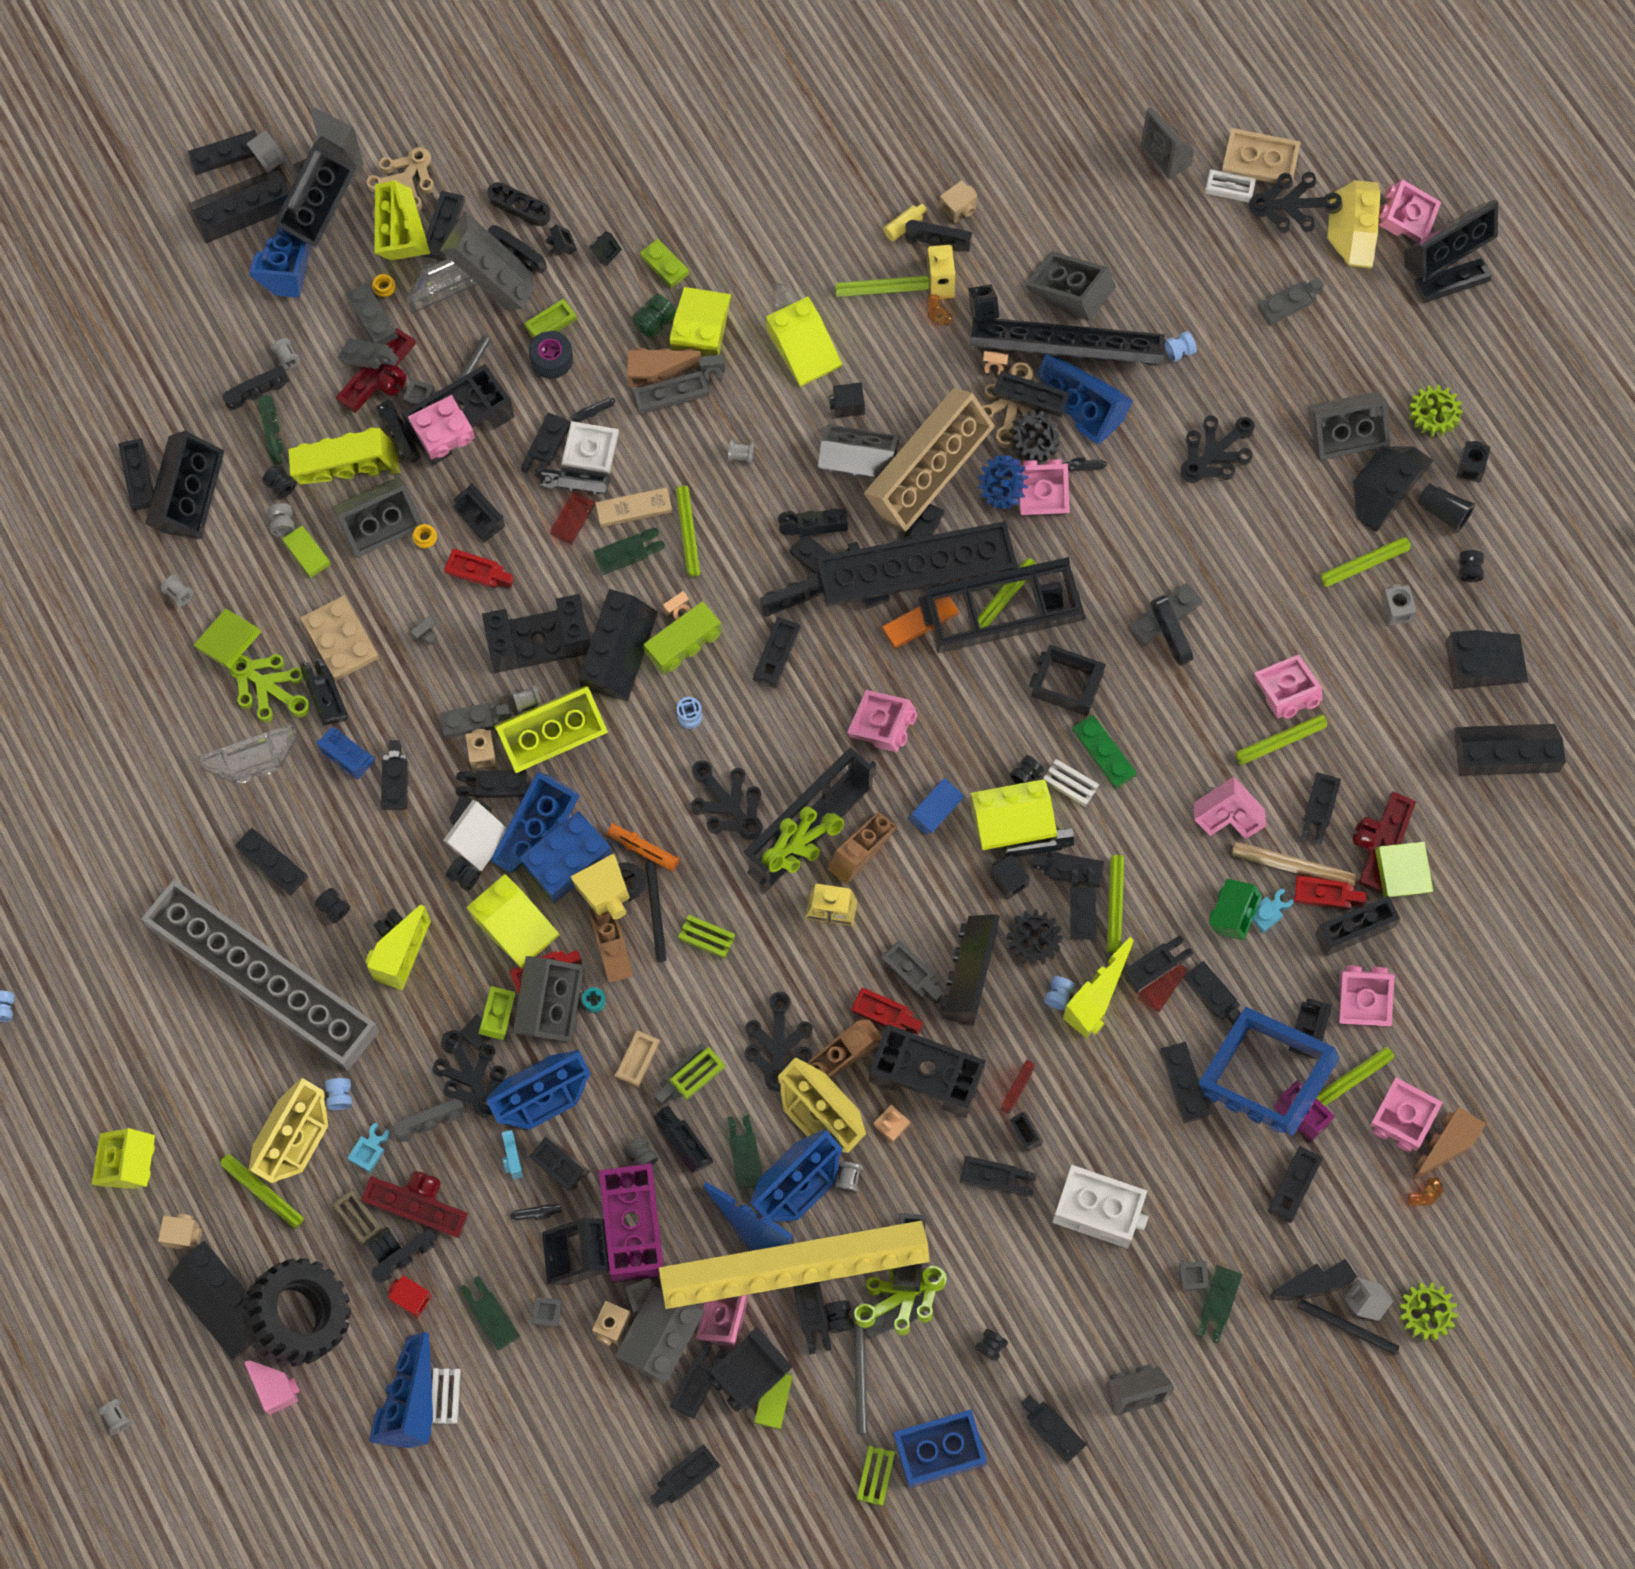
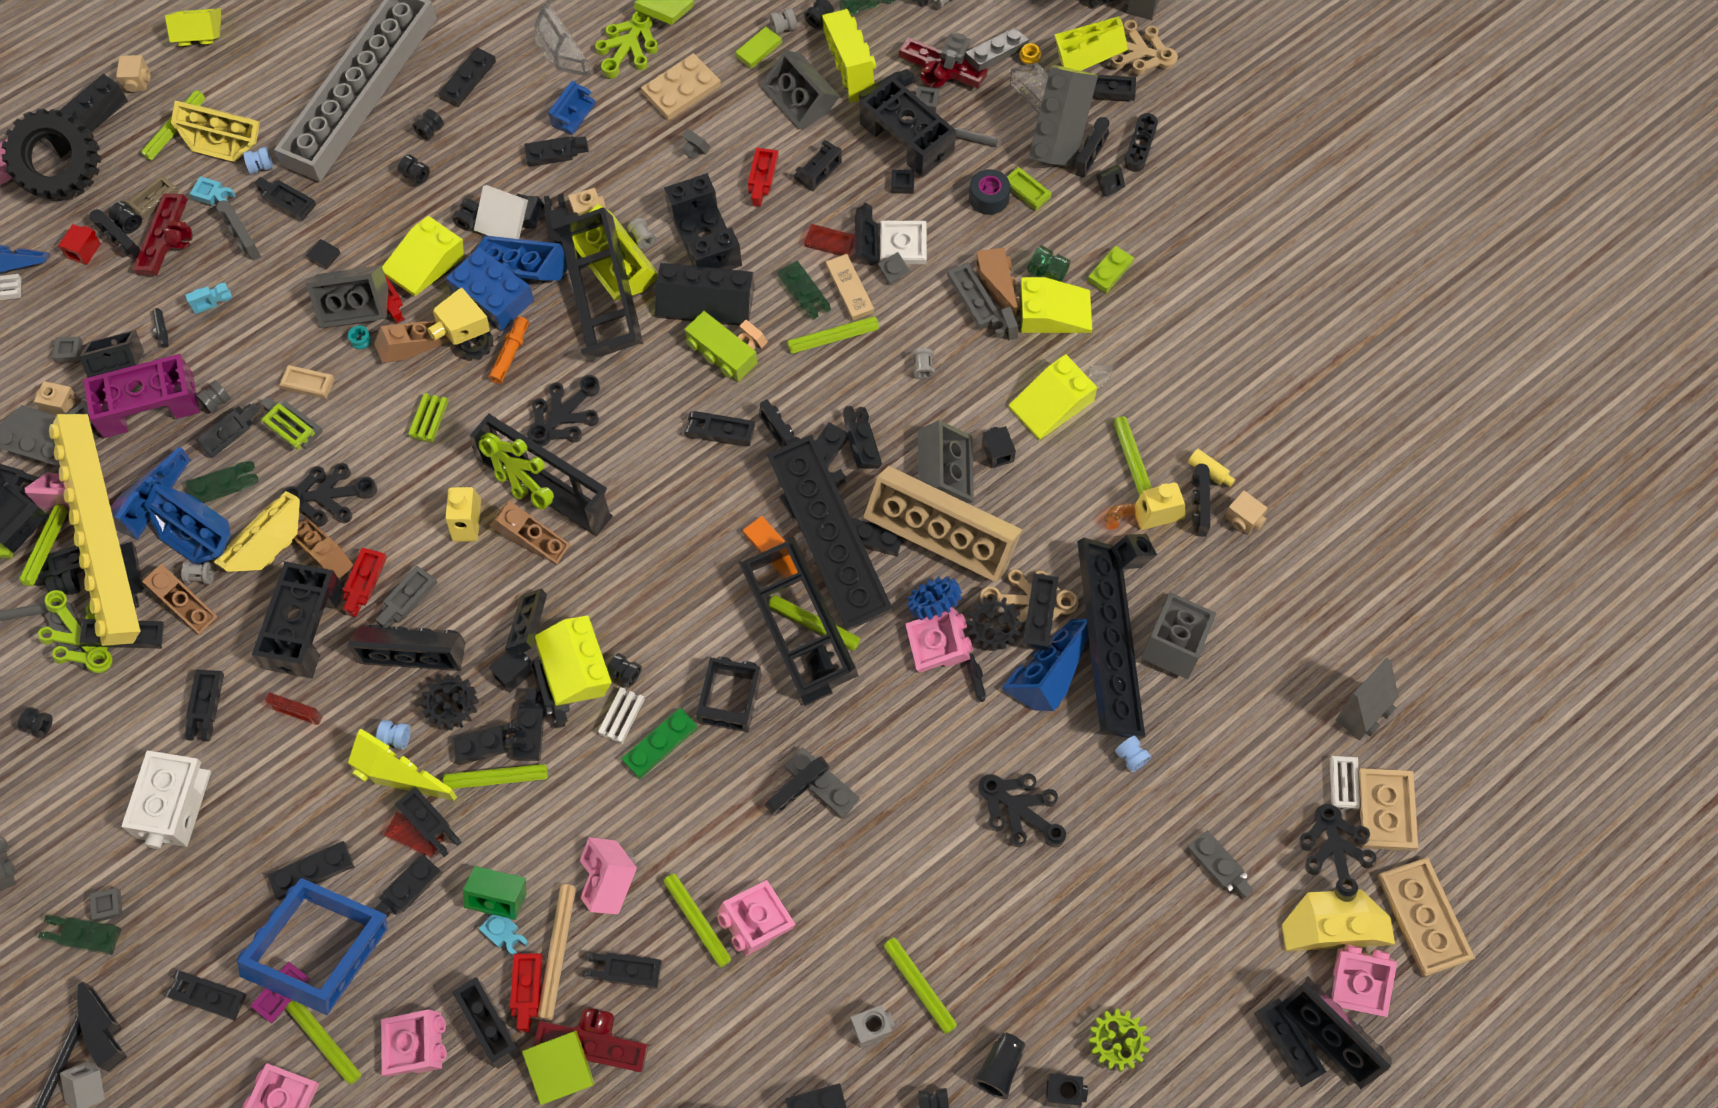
camera: 80 degrees right, 5 degrees down
(324, 693) = (623, 82): black hinge -> none
(395, 1067) = (285, 198): none -> black hinge
(397, 950) = (385, 176): neon yellow slope -> none
(421, 530) = (789, 124): yellow plate -> none
(442, 427) = (880, 105): bright pink plate -> none
(465, 720) = (617, 197): dark grey hinge -> none
(468, 1075) = (277, 253): black plant -> none
(491, 1316) = (68, 308): clear green hinge -> none
(497, 1013) = (334, 260): lime plate -> none
(515, 436) = (902, 181): none -> black tile
(540, 1090) = (263, 302): blue wedge -> none
(546, 443) = (898, 205): black hinge -> none
(559, 1163) = (202, 334): black hinge -> none
(592, 410) = (940, 235): black piece -> none
(605, 248) = (1111, 216): black tile -> none
(623, 460) = (894, 268): none -> dark grey plate
(656, 912) = (448, 373): black bar -> none
(669, 731) = (574, 225): none -> black piece
(692, 717) = (645, 364): light blue wheel -> none
(793, 1332) = (43, 545): none -> lime axle
(874, 1198) = (179, 599): none -> medium nougat slope
(883, 720) = (660, 530): bright pink plate -> none
(891, 1123) = (254, 603): light nougat tile -> none
(936, 807) = (577, 591): blue hinge -> none
(966, 852) = (526, 622): none -> black plate
(996, 358) = (1074, 574): light nougat tile -> none
(1023, 1116) = (247, 723): black piece -> none
(1312, 1021) = (376, 991): black hinge -> none
(1349, 425) = (1079, 945): dark grey slope -> none
(1357, 153) = (1425, 917): none -> tan tile
(1387, 482) = (1021, 998): black wedge -> none

